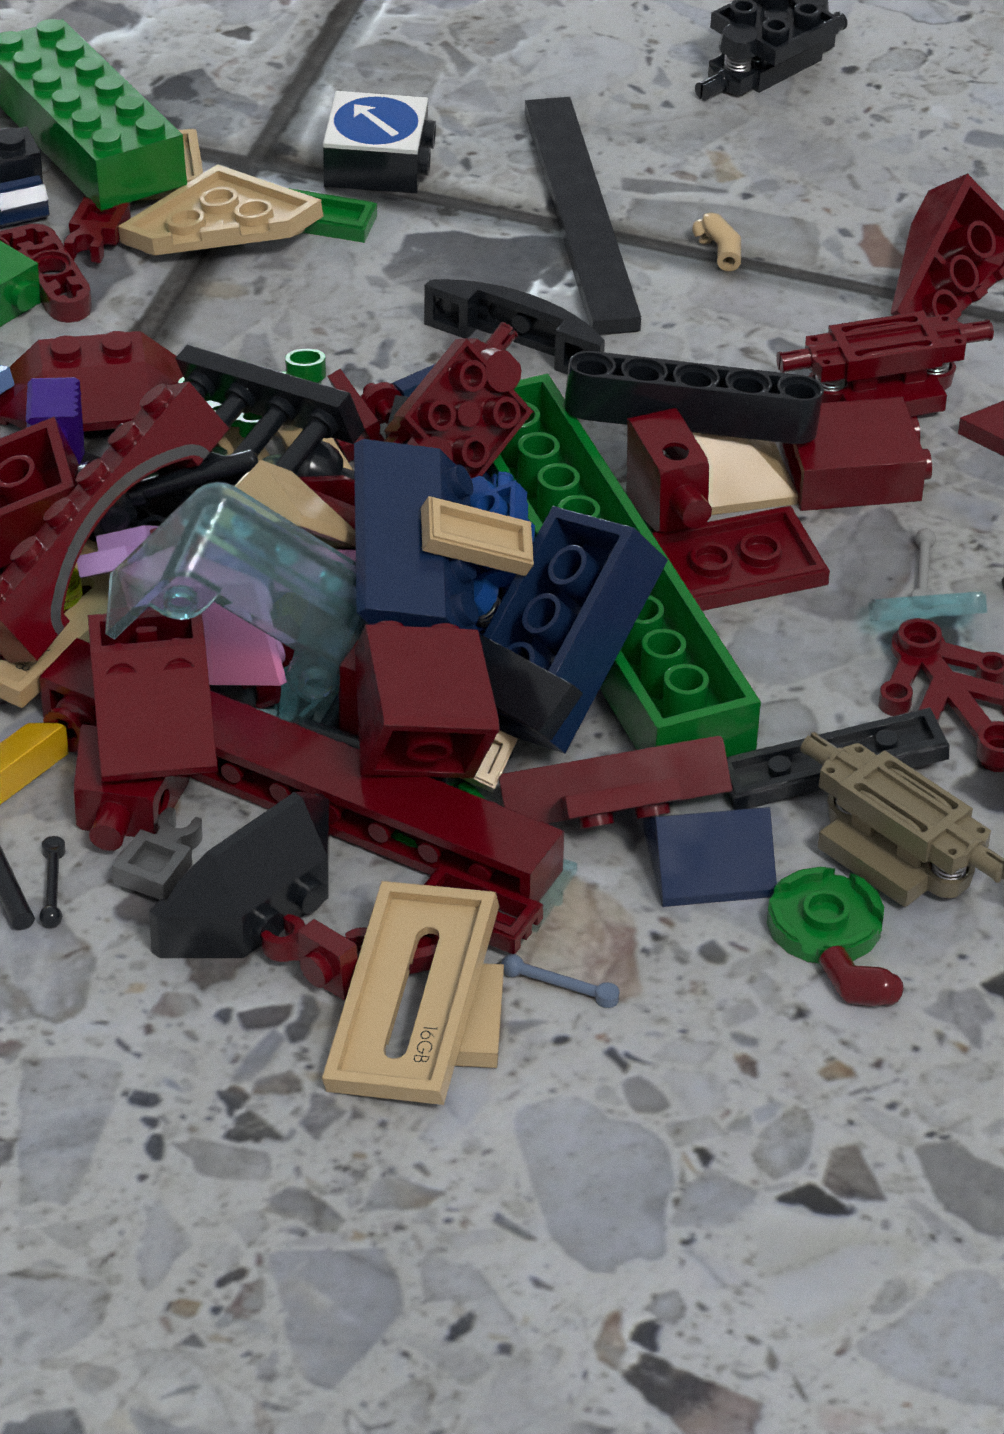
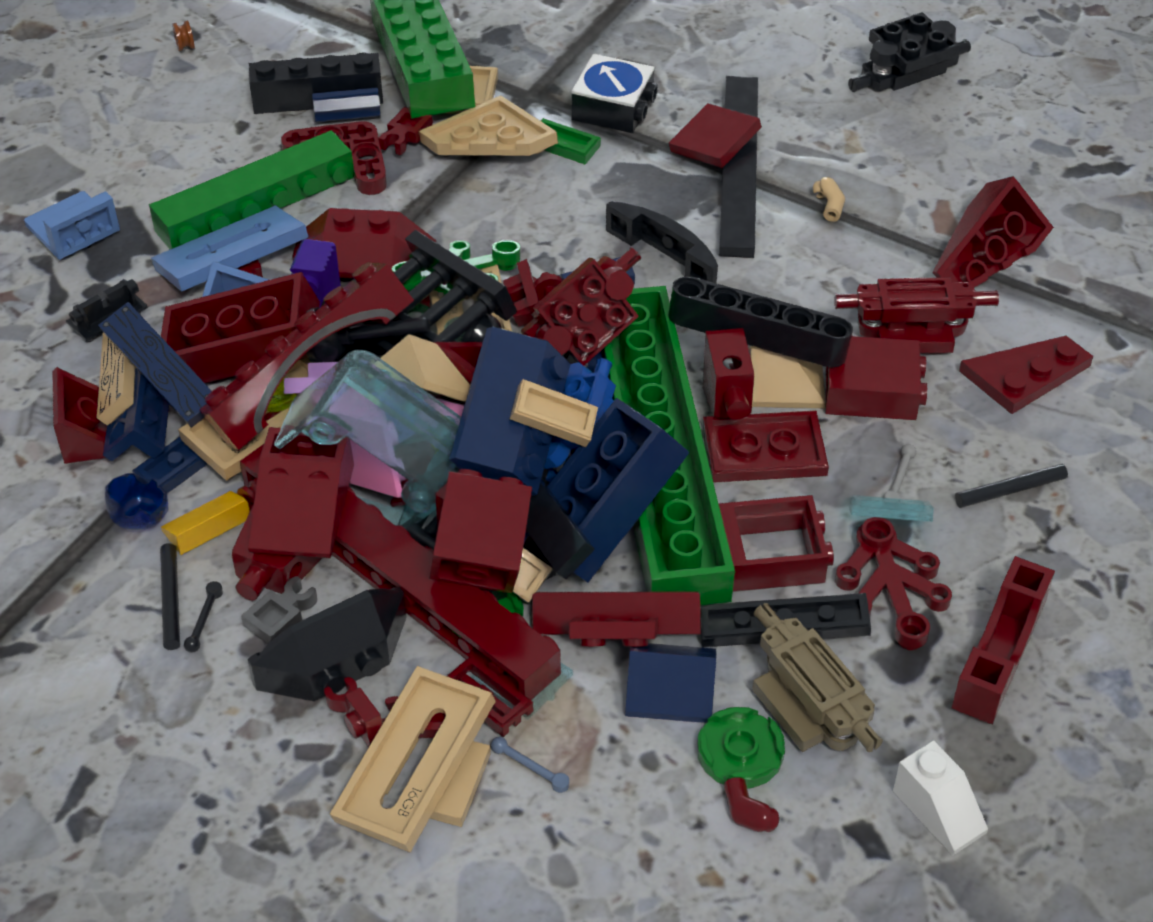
camera: 15 degrees right, 5 degrees up
(538, 178) = (715, 135): none -> dark red tile
(795, 635) = (775, 516): none -> dark red window

